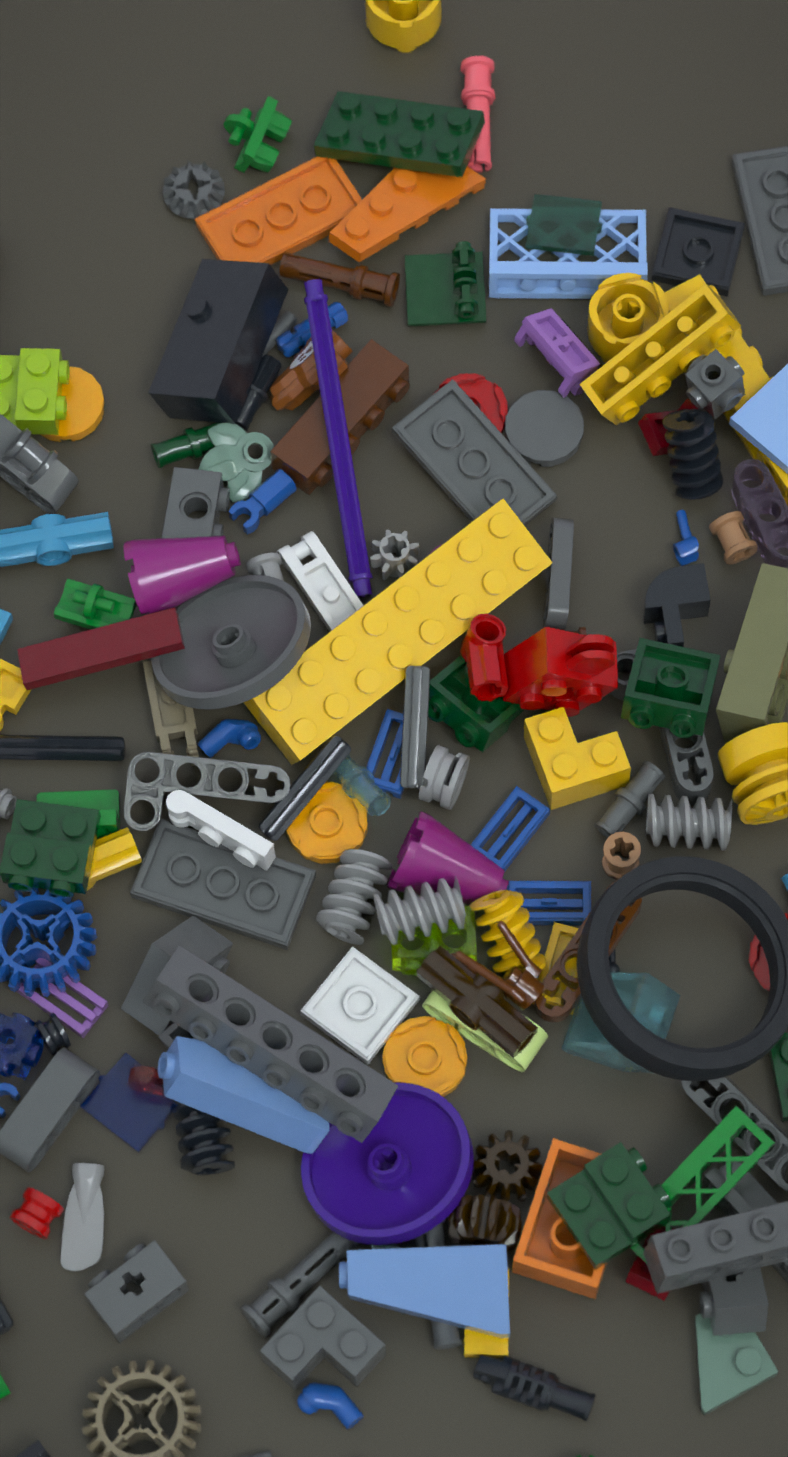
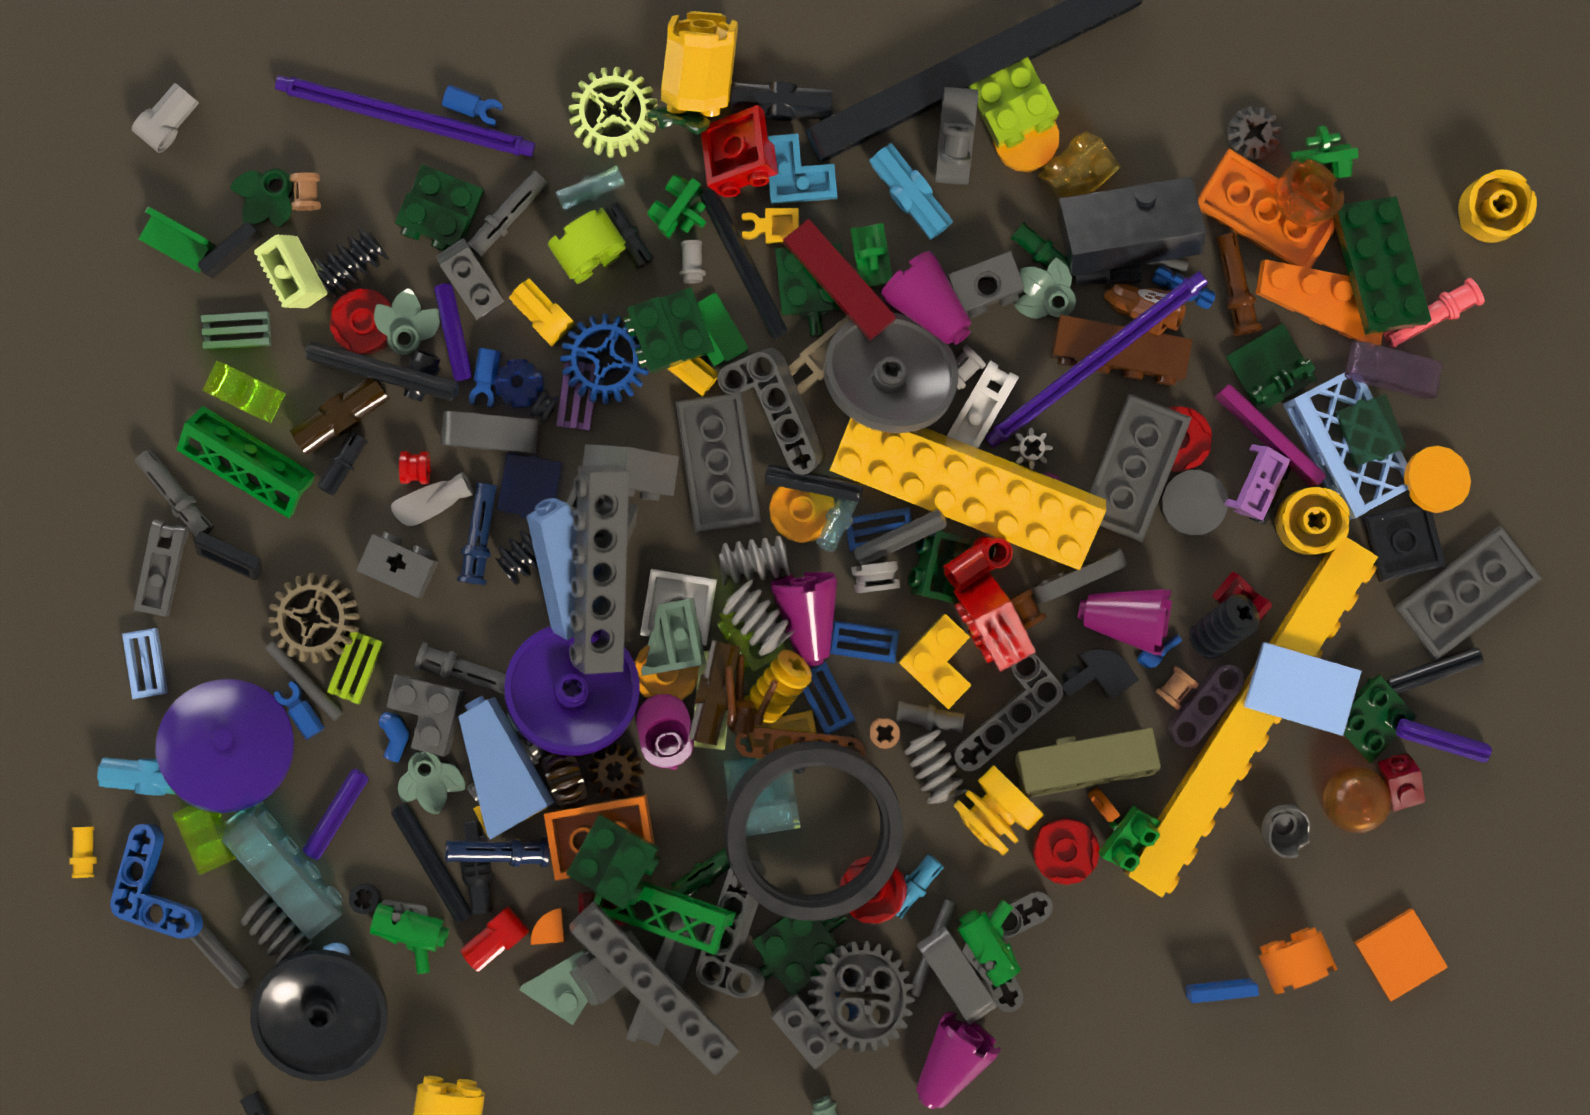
camera: 60 degrees right, 20 degrees up
(90, 700) = (801, 292): none -> dark green plate
(126, 364) = (1080, 167): none -> clear yellow bracket
(145, 1080) = (543, 488): tile -> none
(169, 1194) = (484, 494): none -> dark blue pin
(201, 1378) = (344, 692): none -> lime tile
(220, 829) = (748, 439): white plate -> none
(233, 732) = (821, 397): blue arm -> none
(264, 499) = (1026, 328): blue bar -> none
(287, 162) = (1307, 194): none -> clear orange cylinder
(393, 1020) = (675, 639): none -> sand green wing
(412, 1390) = (430, 786): none -> sand green plate
(492, 1085) = (664, 731): none -> magenta piece
(502, 1438) = (431, 863): none -> black axle
(506, 321) = (1269, 435): none -> magenta tile
(514, 173) = (1393, 370): none -> clear purple beam
(539, 1329) = (514, 851): none -> dark blue pin
(628, 1398) = (500, 934): none -> red piece
(631, 541) = (1130, 617): none -> magenta cone
(650, 188) = (1437, 479): none -> light orange tile
(650, 1341) = (549, 928): none -> orange tile
(660, 355) = (1289, 564): yellow brick -> none
(670, 688) = (1022, 708): dark green plate -> none
(677, 1127) = (702, 874): none -> dark green pin
(715, 383) = (1276, 627): dark grey brick -> none

